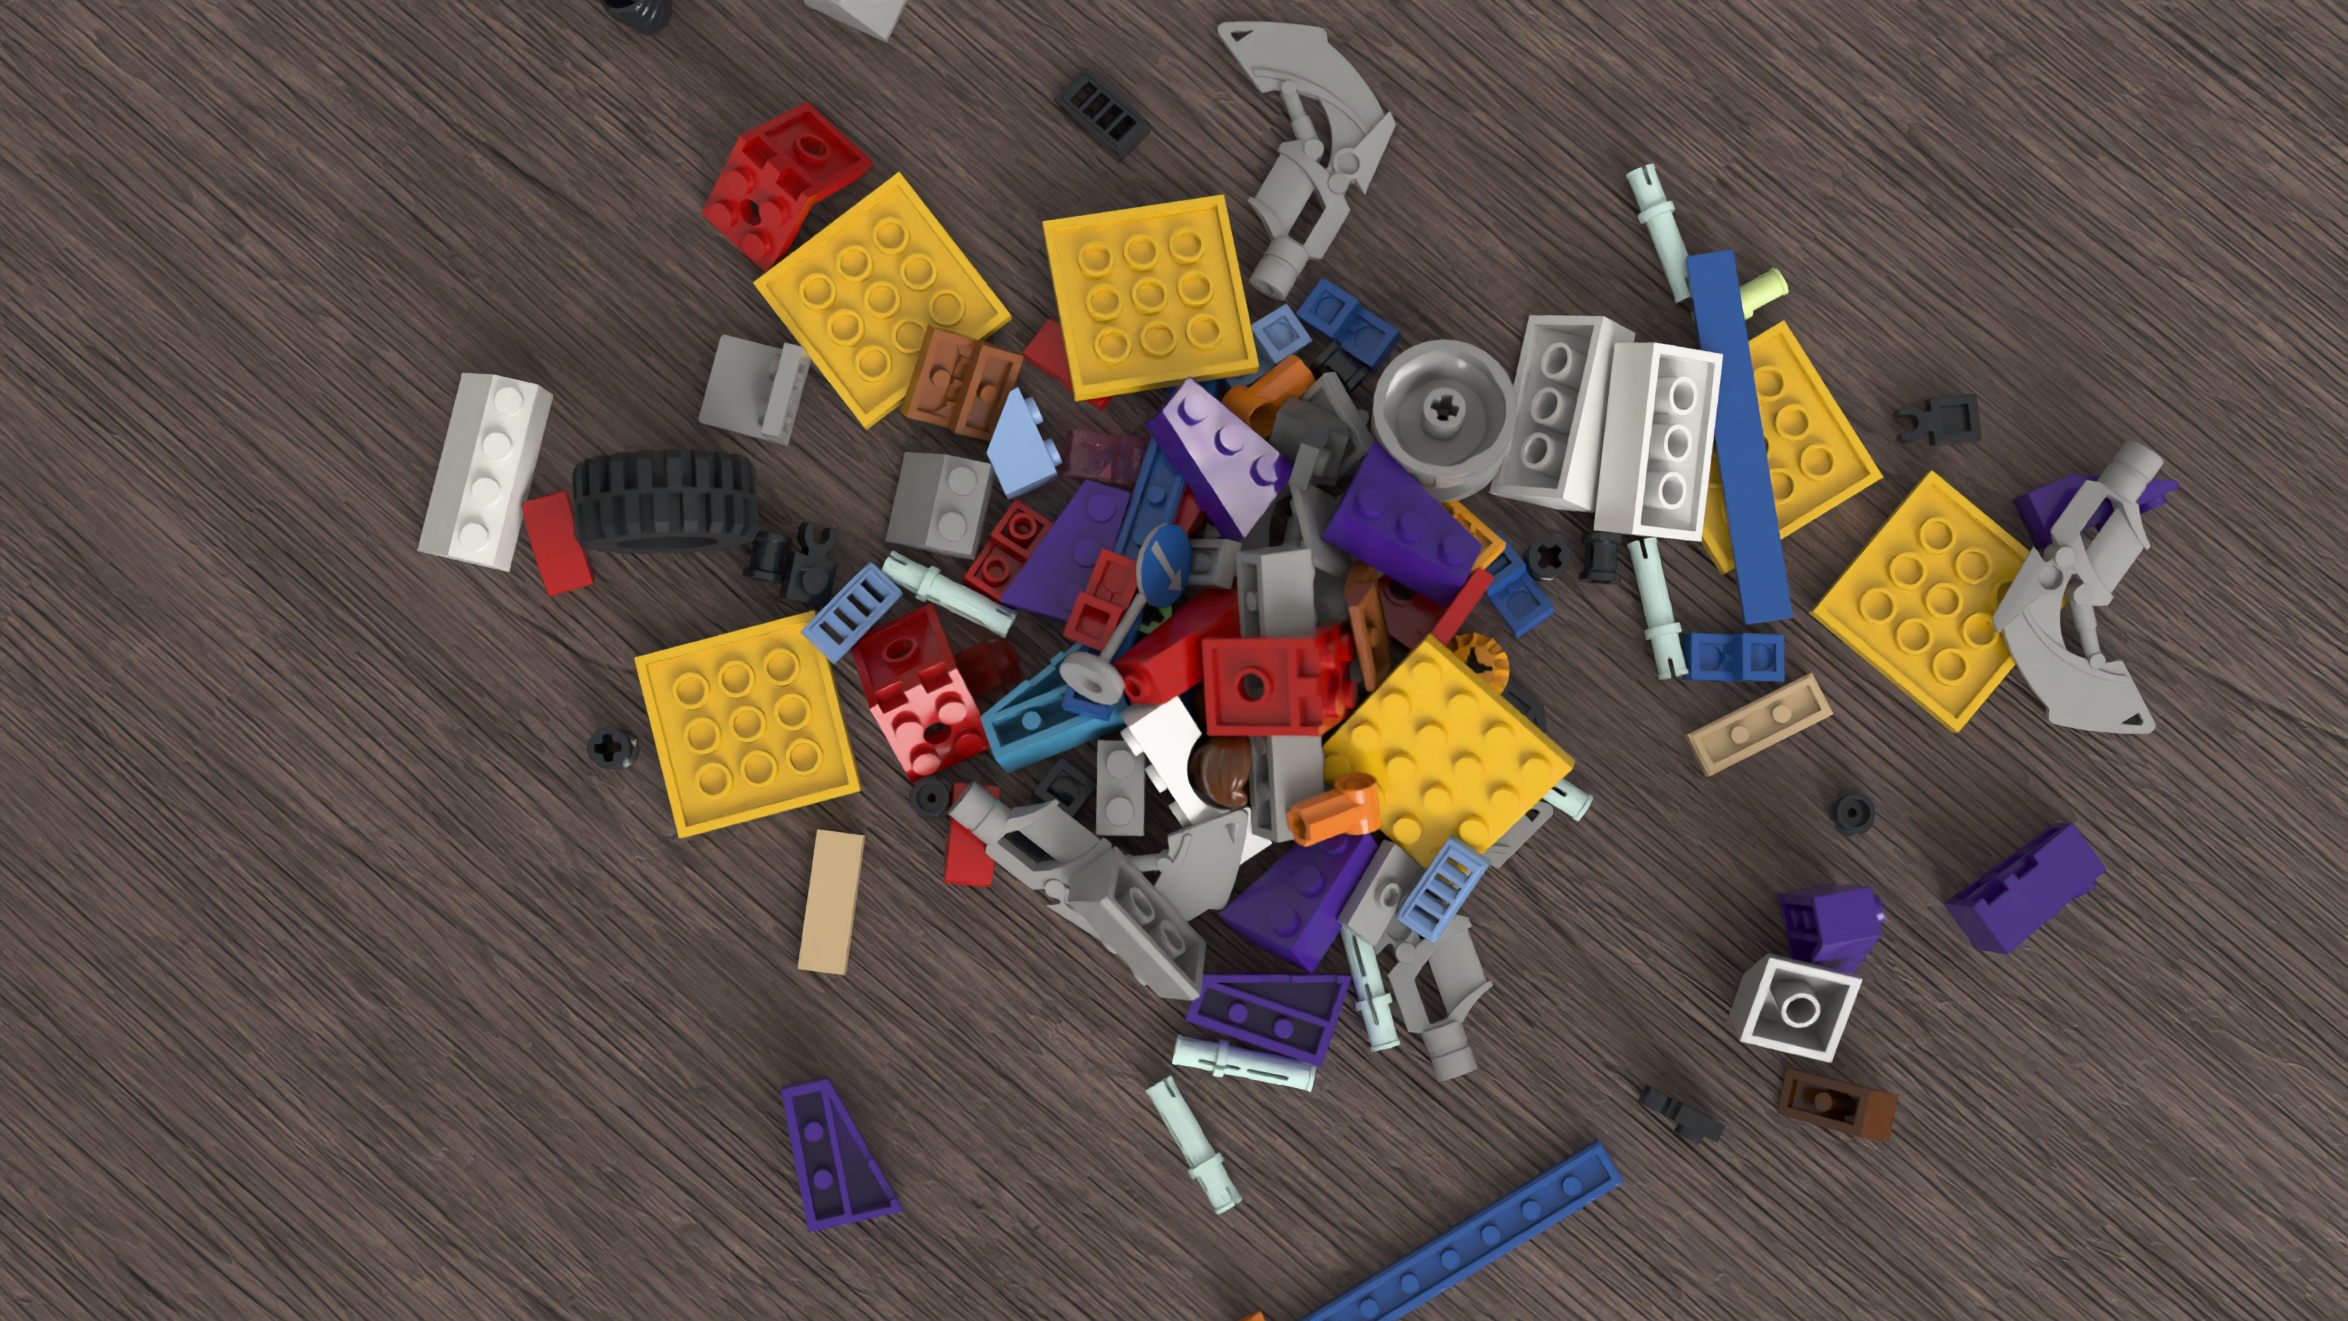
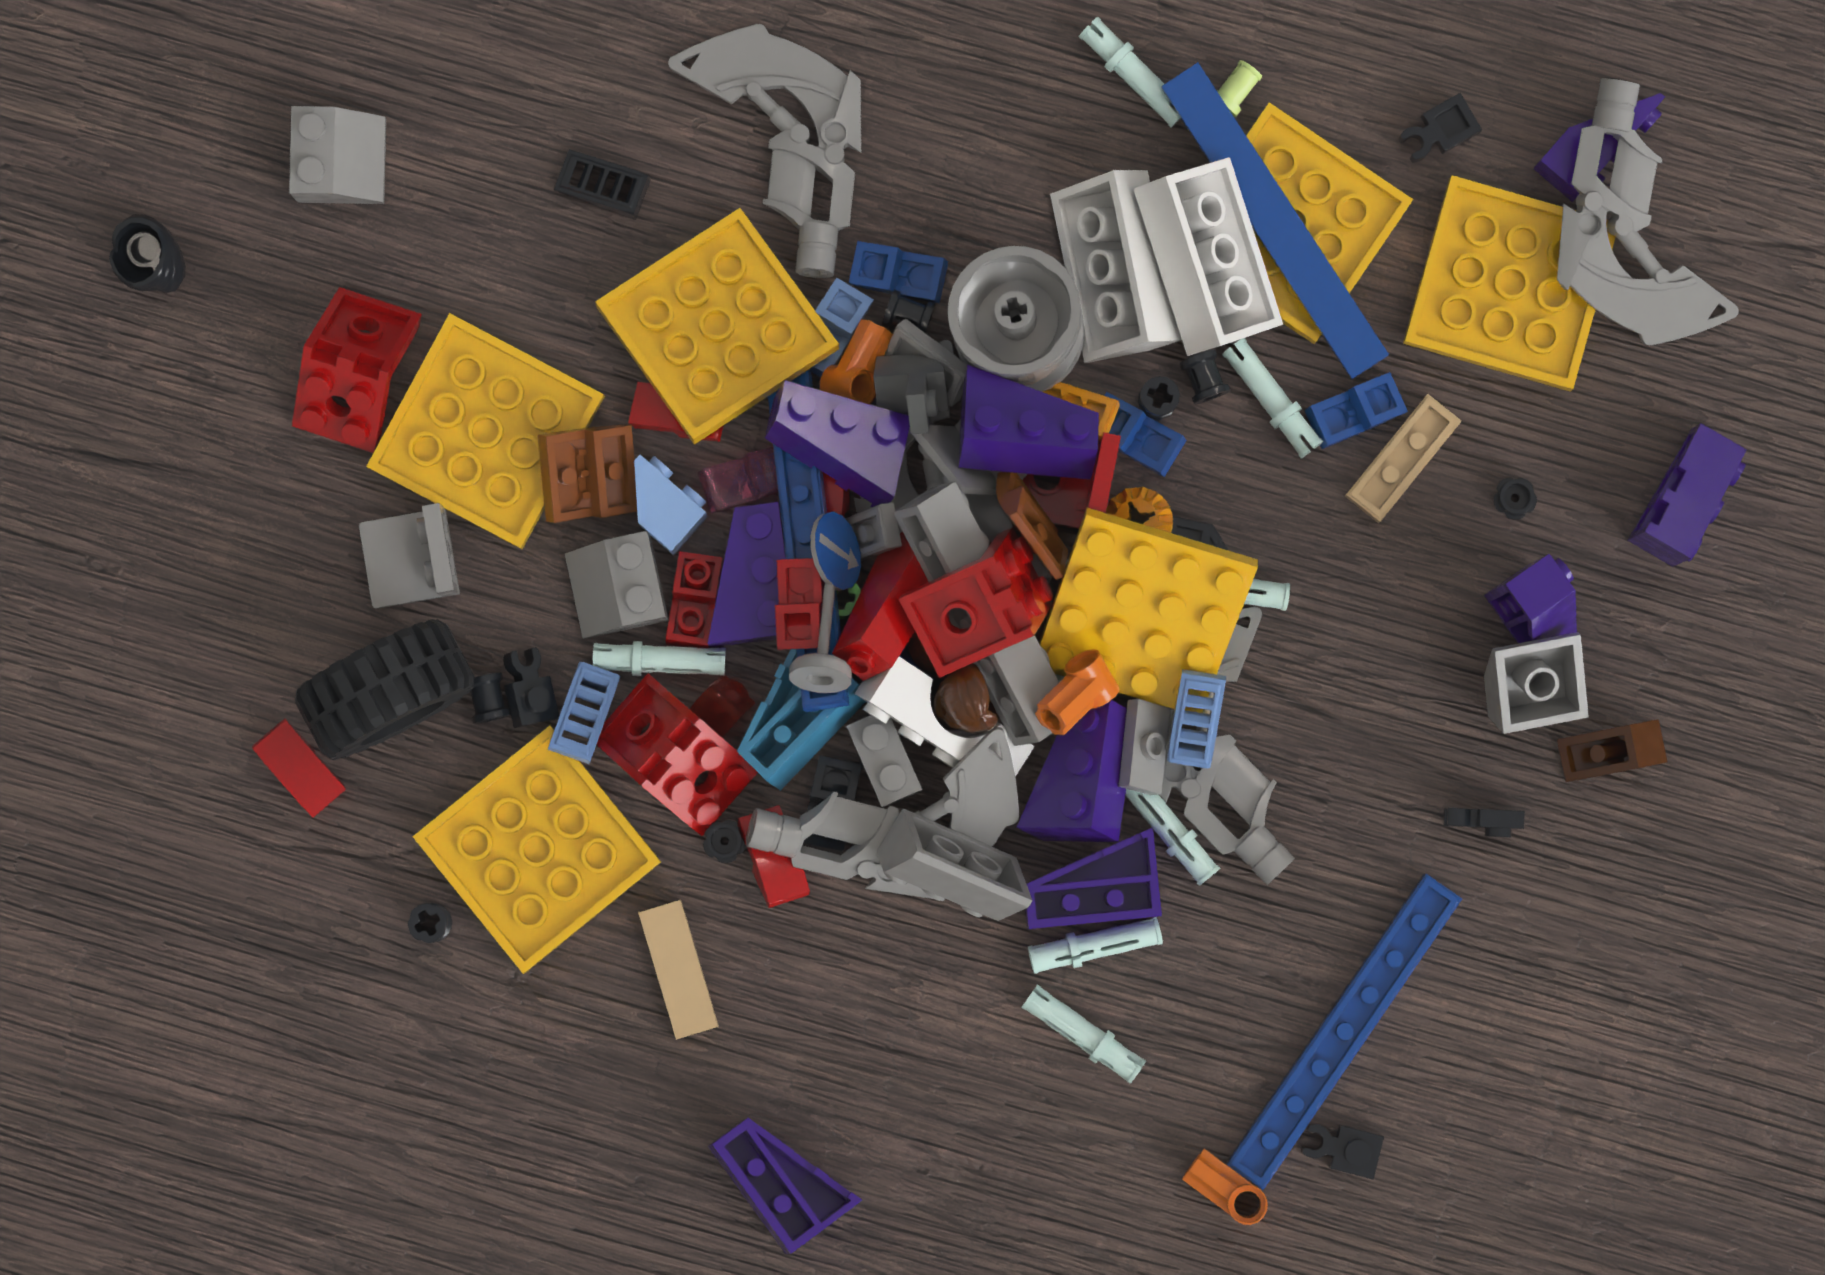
camera: 35 degrees left, 0 degrees up
(486, 470) = (205, 734): white slope -> none

